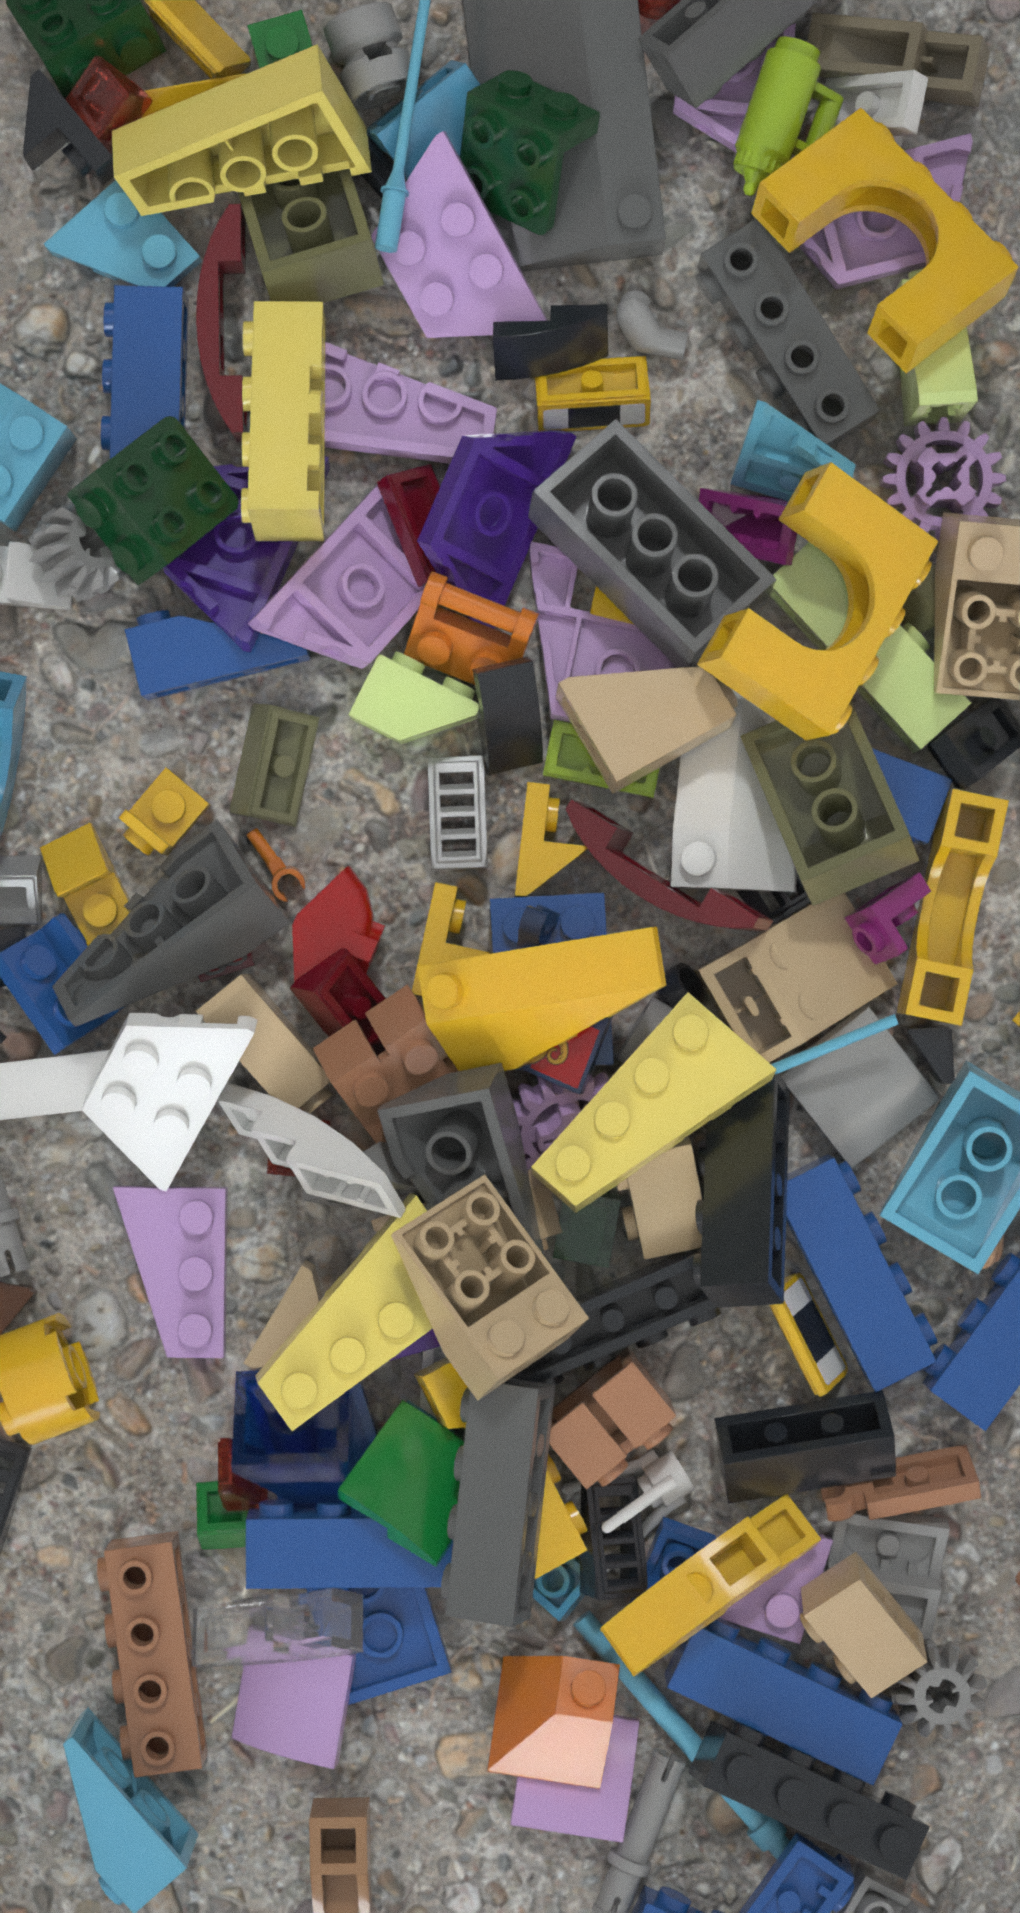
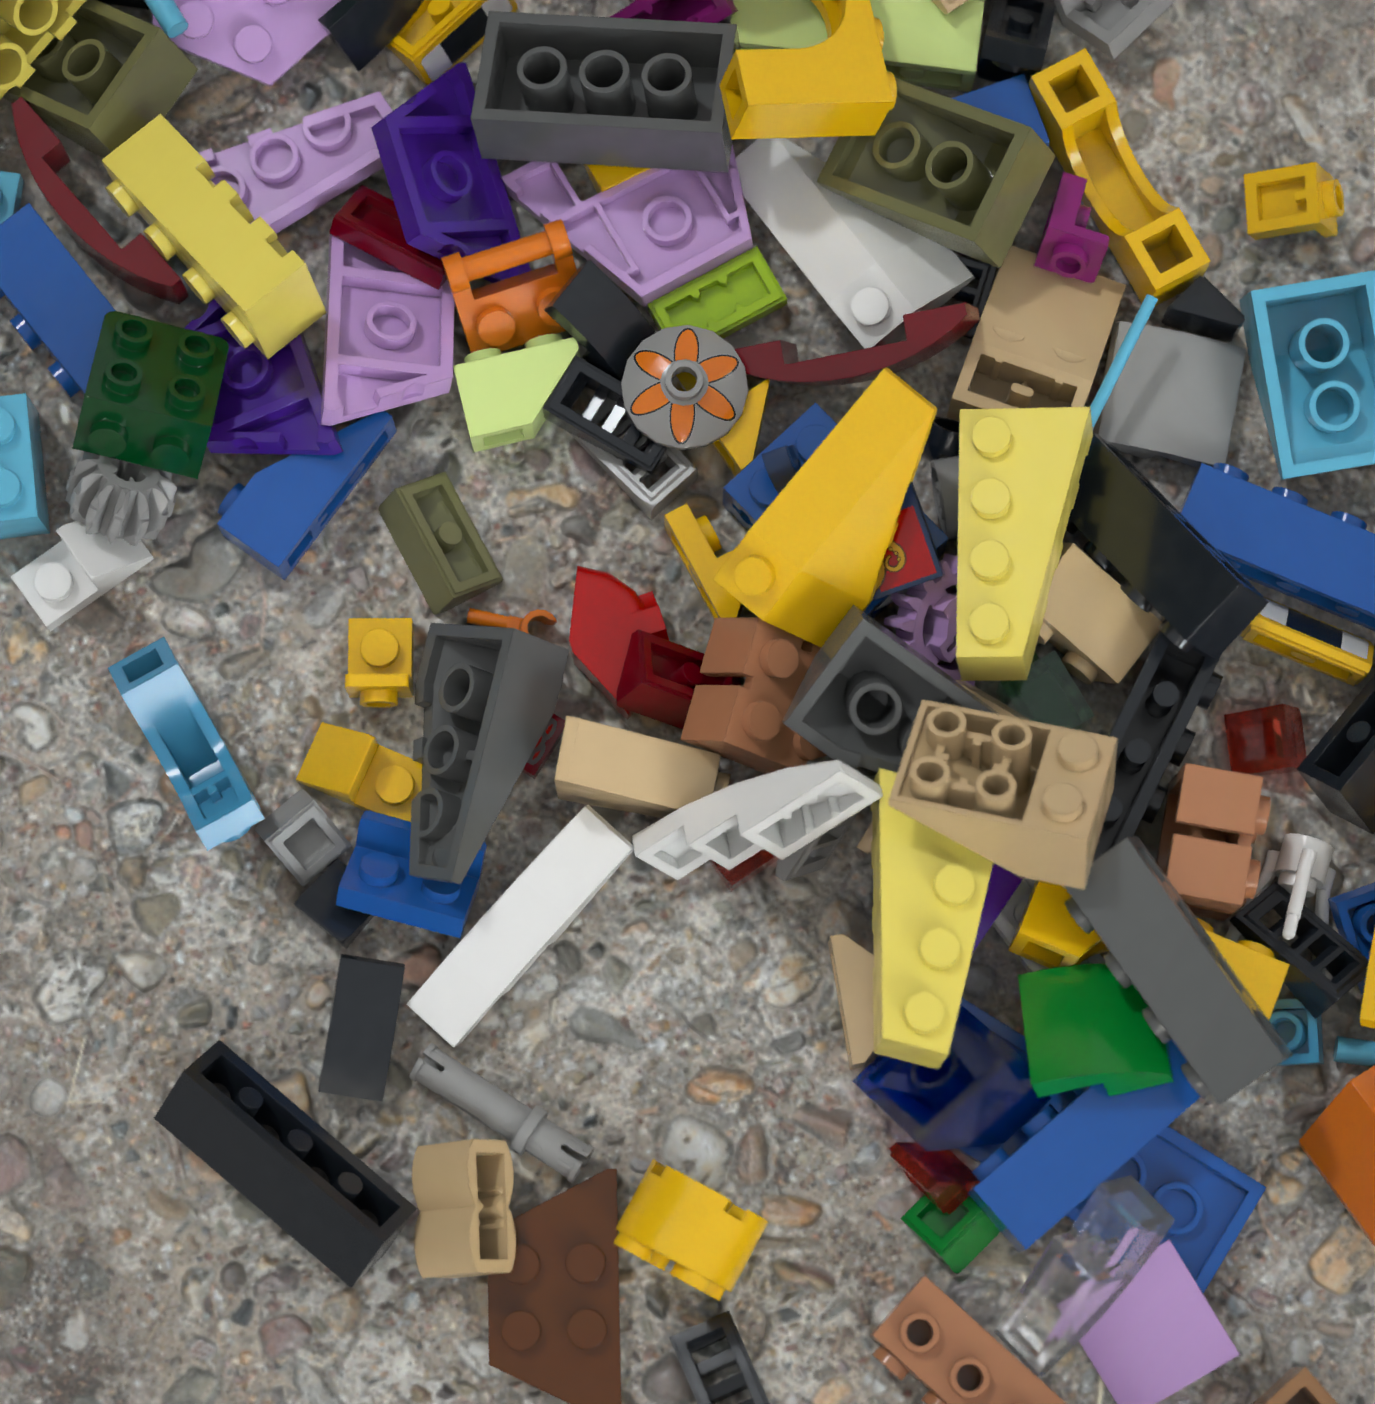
camera: 45 degrees left, 10 degrees down
(163, 1086) = (579, 874): white wing -> none
(182, 1263) = (722, 1031): lavender wing -> none
(447, 736) = (565, 395): none -> black slope
(528, 835) = (684, 417): none -> light grey dish
(645, 717) = (722, 230): tan slope -> none
(716, 1376) = (1265, 740): none -> clear red slope

